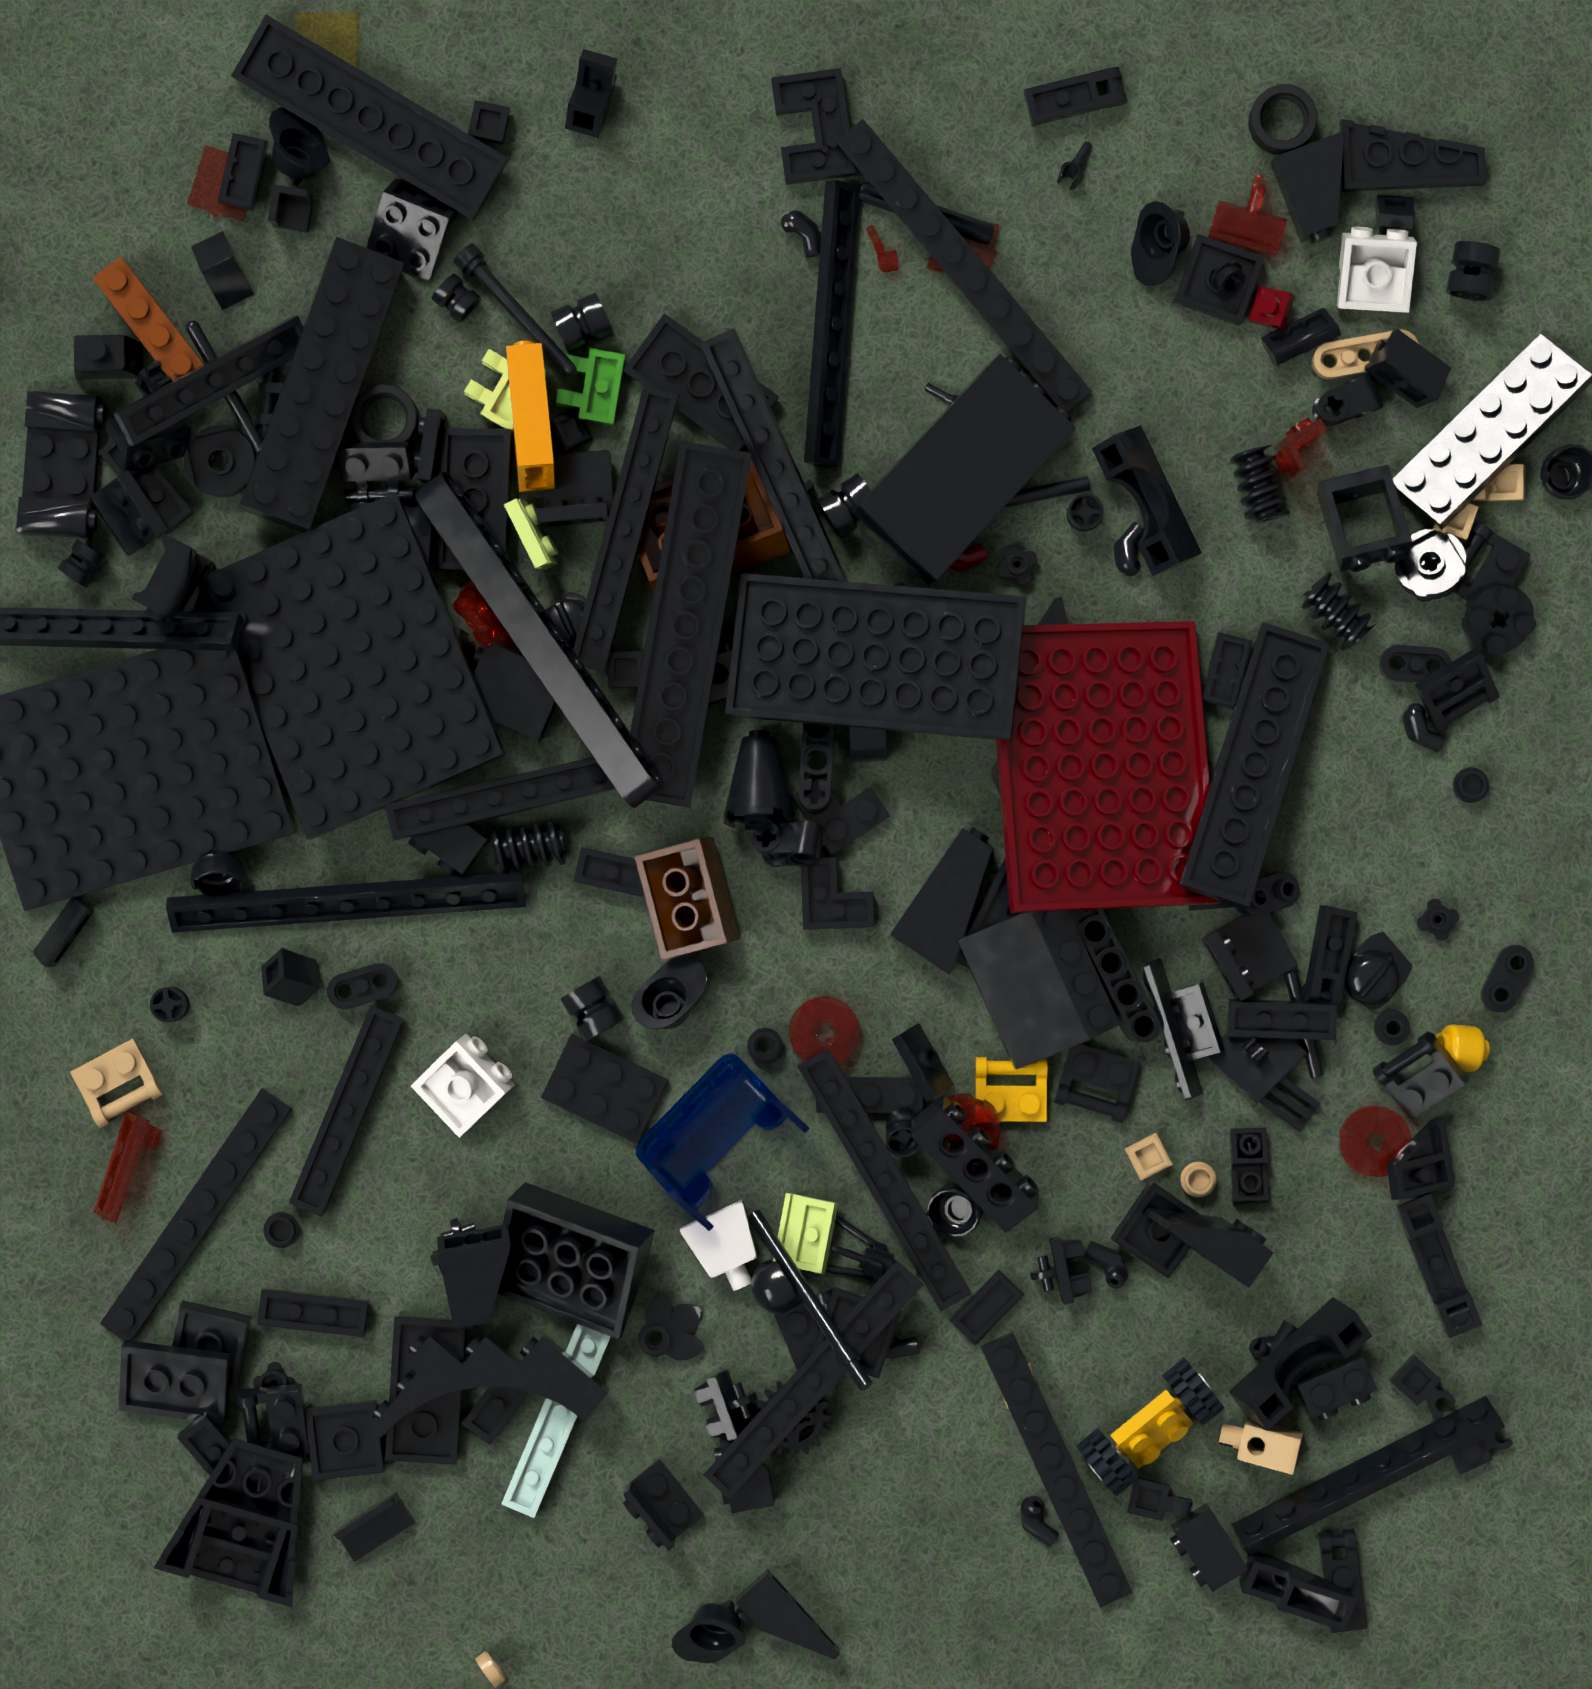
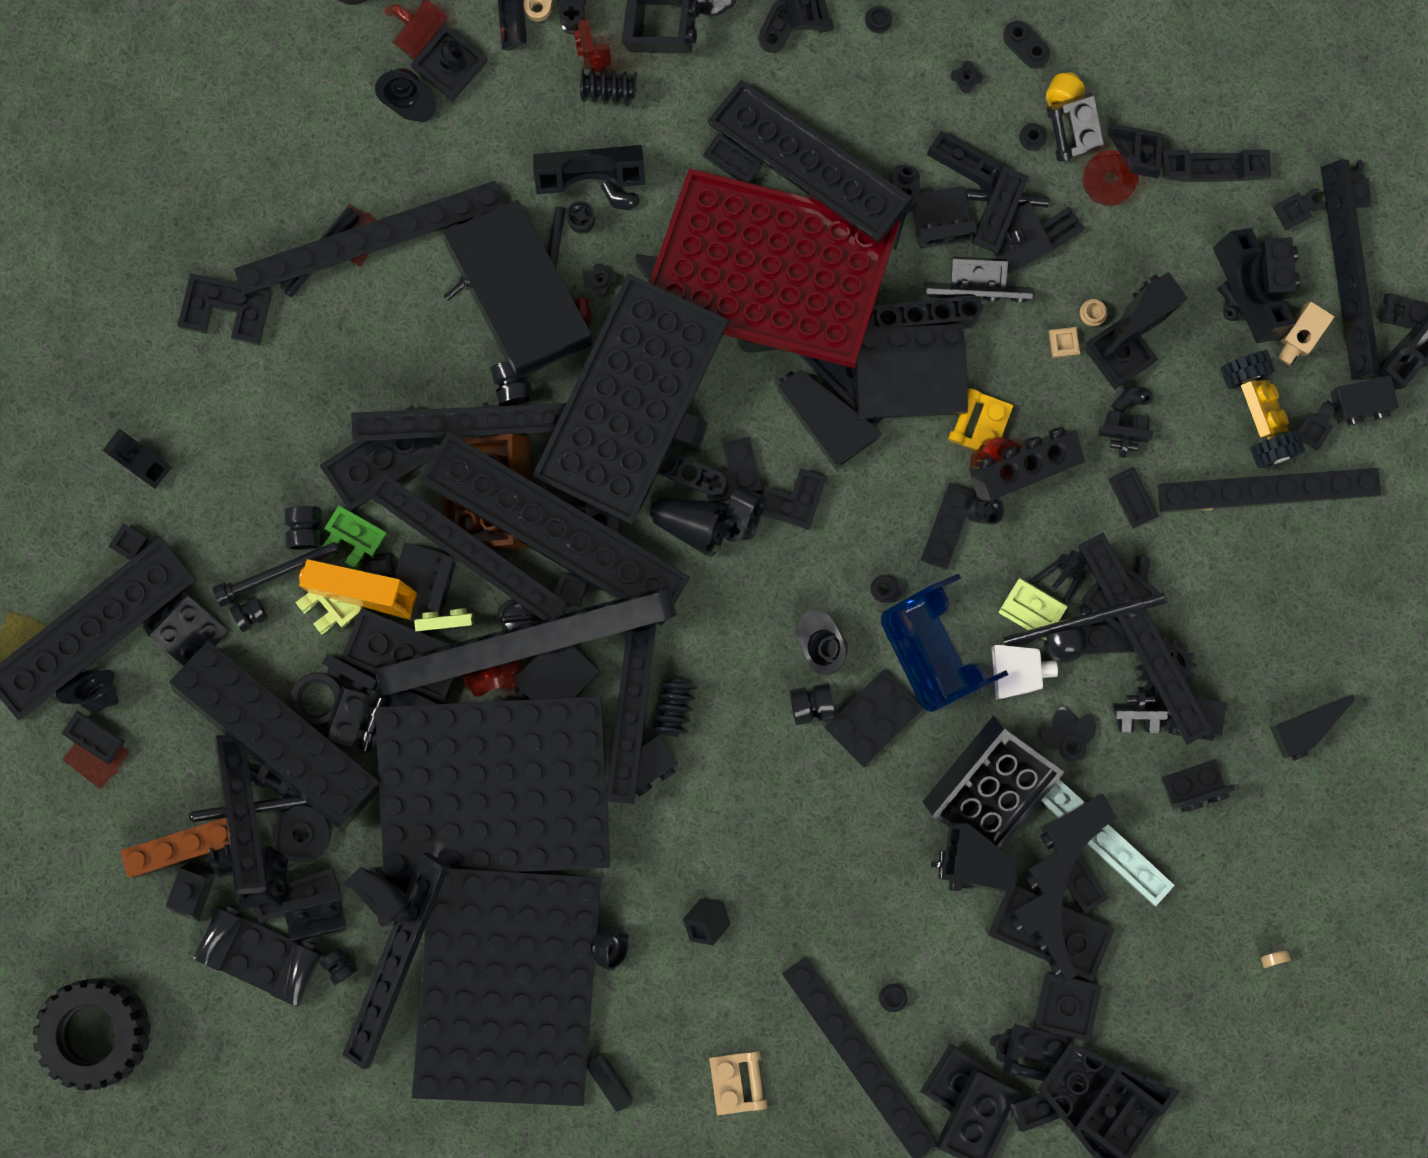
camera: 75 degrees left, 5 degrees down
(132, 1137) = (783, 1084): clear red hinge -> none
(162, 1005) = (696, 1023): black wheel -> none
(222, 270) = (160, 780): black slope -> none
(291, 208) = (134, 711): black panel -> none
(313, 1312) = (963, 996): black plate -> none
(346, 902) = (665, 859): black plate -> none
(346, 1110) = (821, 915): black plate -> none
(363, 986) = (733, 869): black plate -> none
(374, 1526) = (1139, 1008): black panel -> none
(463, 1084) = (833, 820): white plate -> none
(608, 872) = (716, 653): black plate -> none
(687, 897) = (755, 604): reddish brown slope -> none
(710, 1634) = (1306, 785): black piece -> none
(805, 228) = (297, 342): black arm -> none
(813, 1014) = (905, 539): clear red plate -> none
(832, 324) = (374, 348): black plate -> none
(884, 1179) = (1013, 535): black plate -> none
(886, 260) = (343, 293): clear red hand -> none
(922, 1062) = (938, 477): black plate -> none
(964, 1208) = (1058, 487): black hair -> none
(1033, 1521) = (1302, 520): black arm -> none
(1073, 168) = (329, 136): black hand -> none
(1074, 96) = (276, 116): black plate -> none
(1101, 1070) = (990, 352): black plate -> none
(1249, 1165) = (1095, 273): black slope -> none
(1271, 307) = (483, 33): dark red plate -> none
(1336, 611) = (719, 65): black piece -> none
(1376, 972) = (988, 133): black piece -> none
(1417, 729) = (825, 42): black arm -> none

